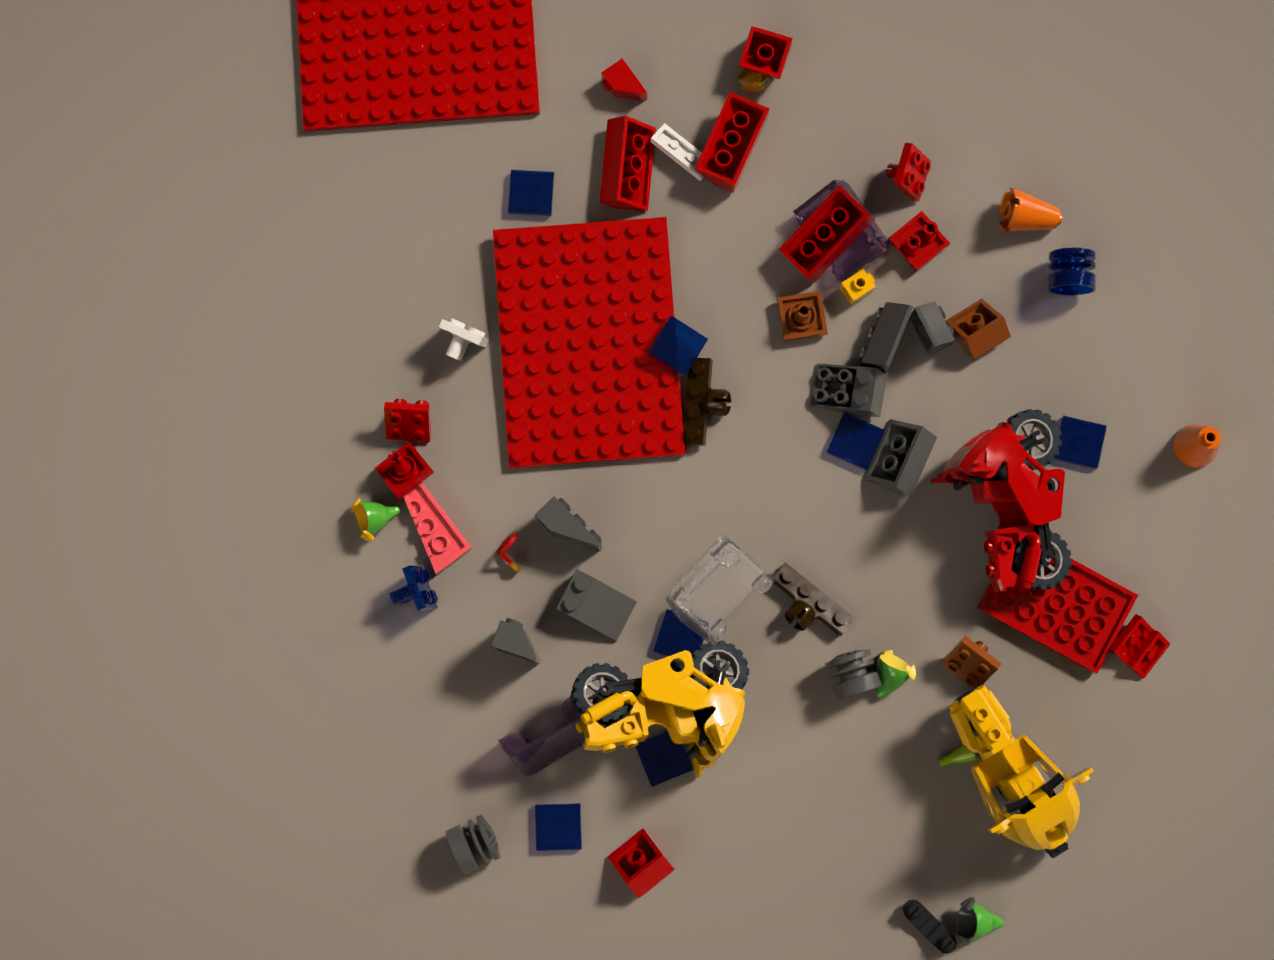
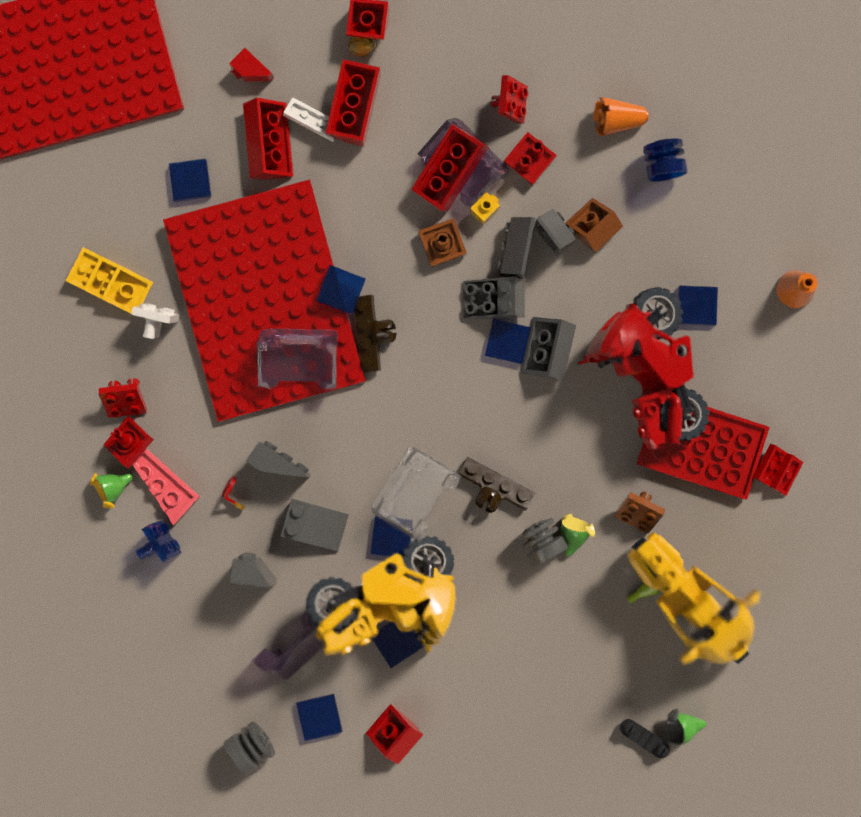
camera: 10 degrees left, 5 degrees up
(418, 287) = (108, 281): none -> yellow slope
(615, 411) = (297, 357): none -> windscreen

